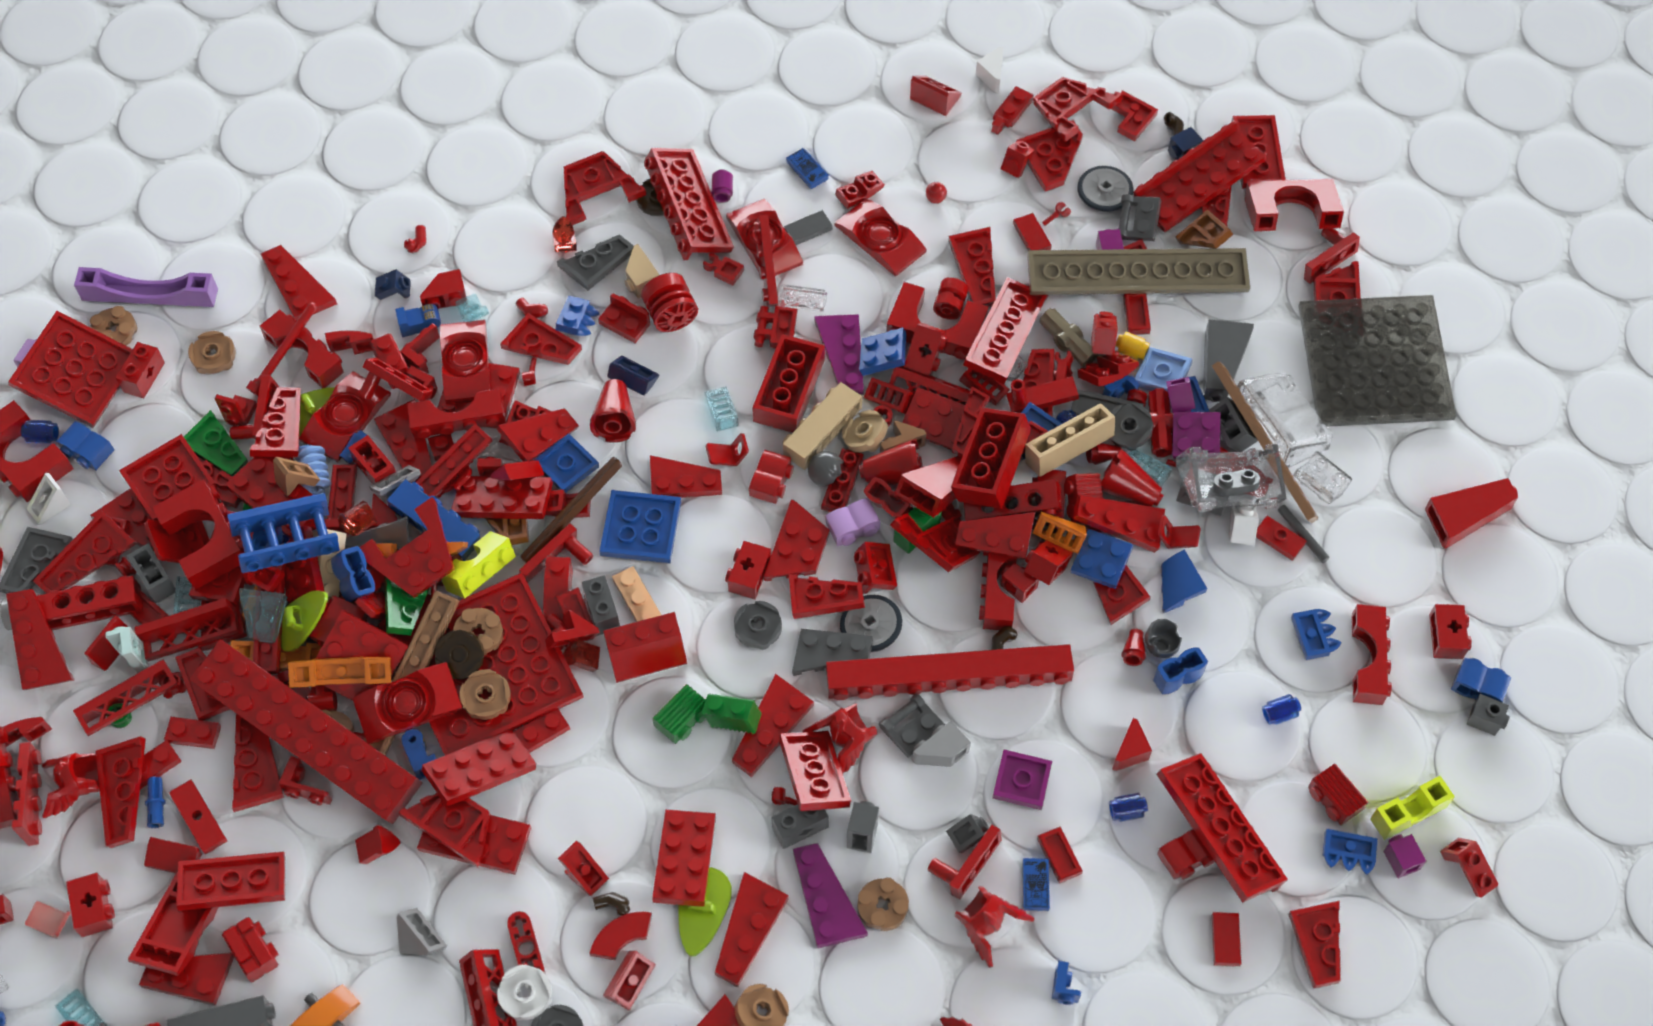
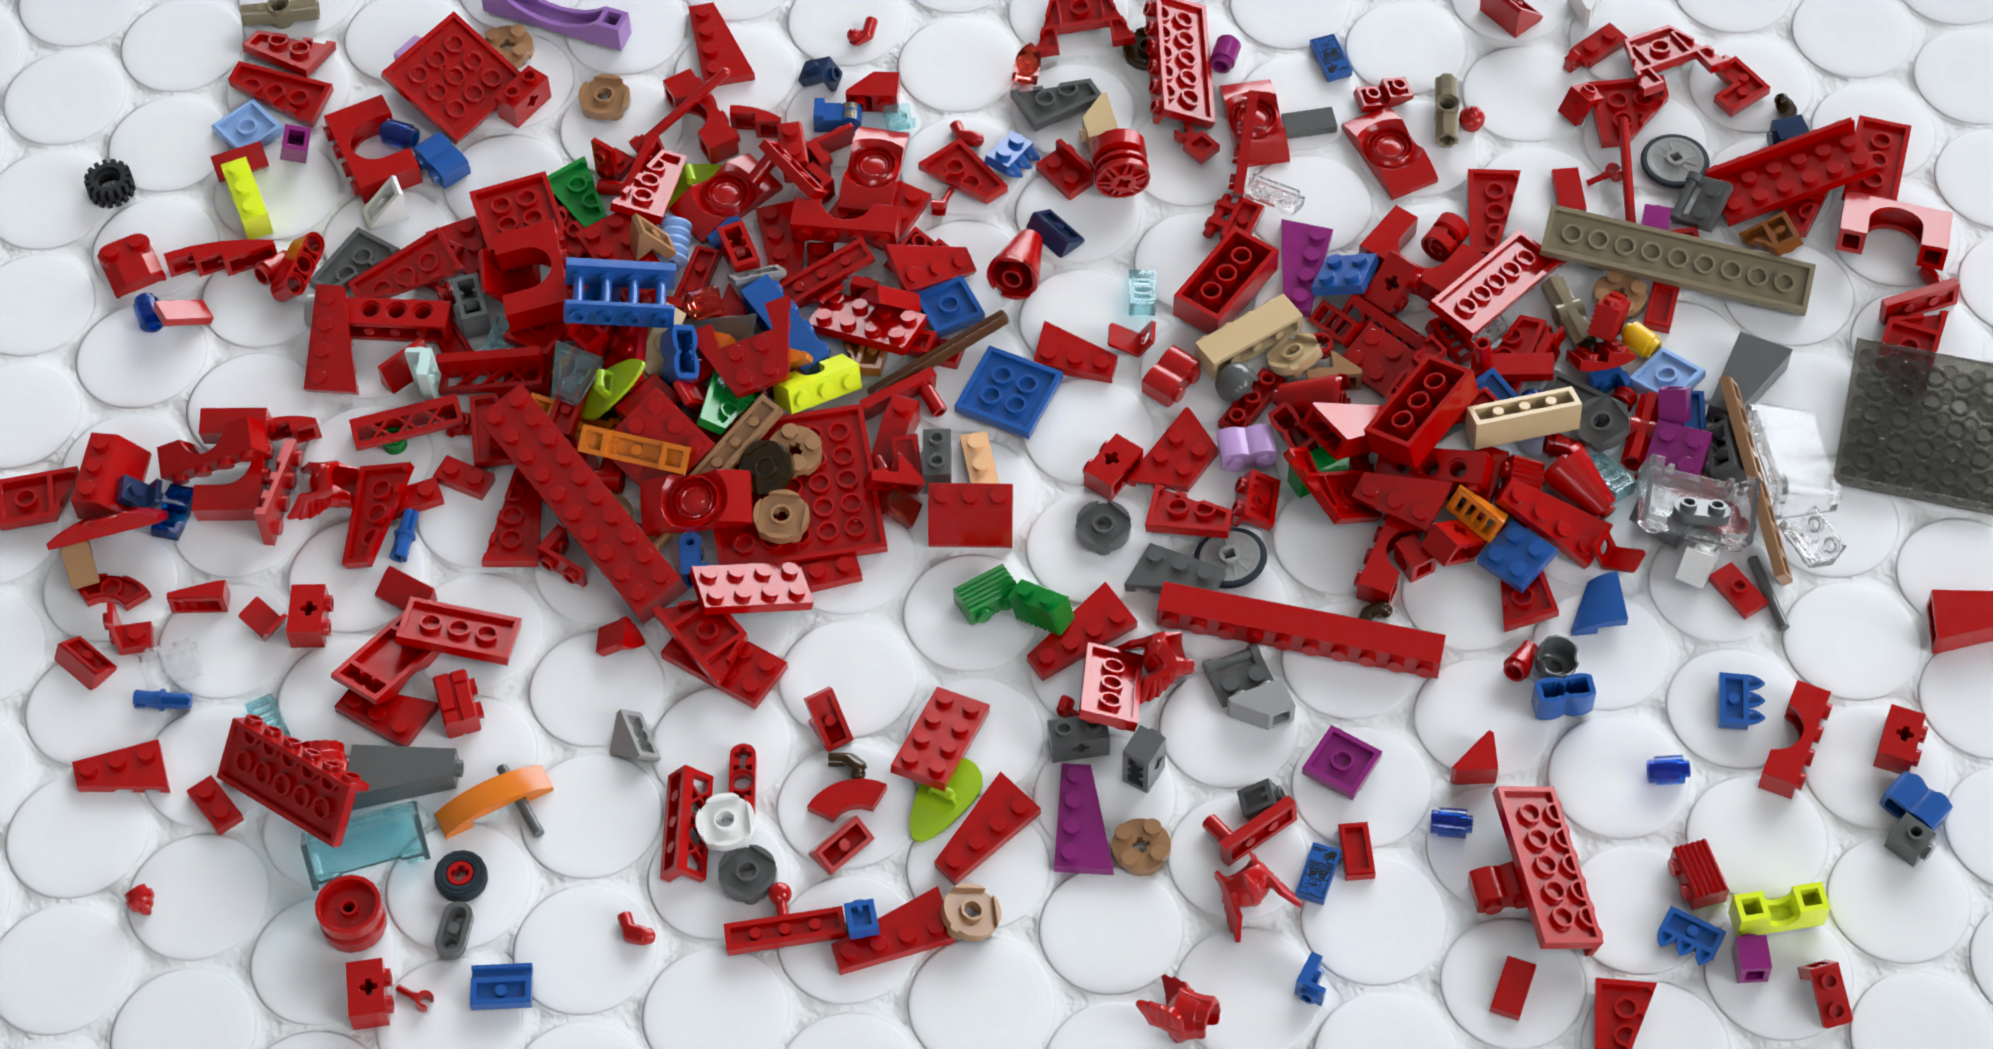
camera: 20 degrees right, 5 degrees down
(192, 805) = (444, 560): red tile -> none
(915, 190) = (1446, 110): none -> dark tan piece
(1073, 206) = (1626, 167): none -> red bar
(1097, 302) = (1629, 286): none -> medium nougat plate

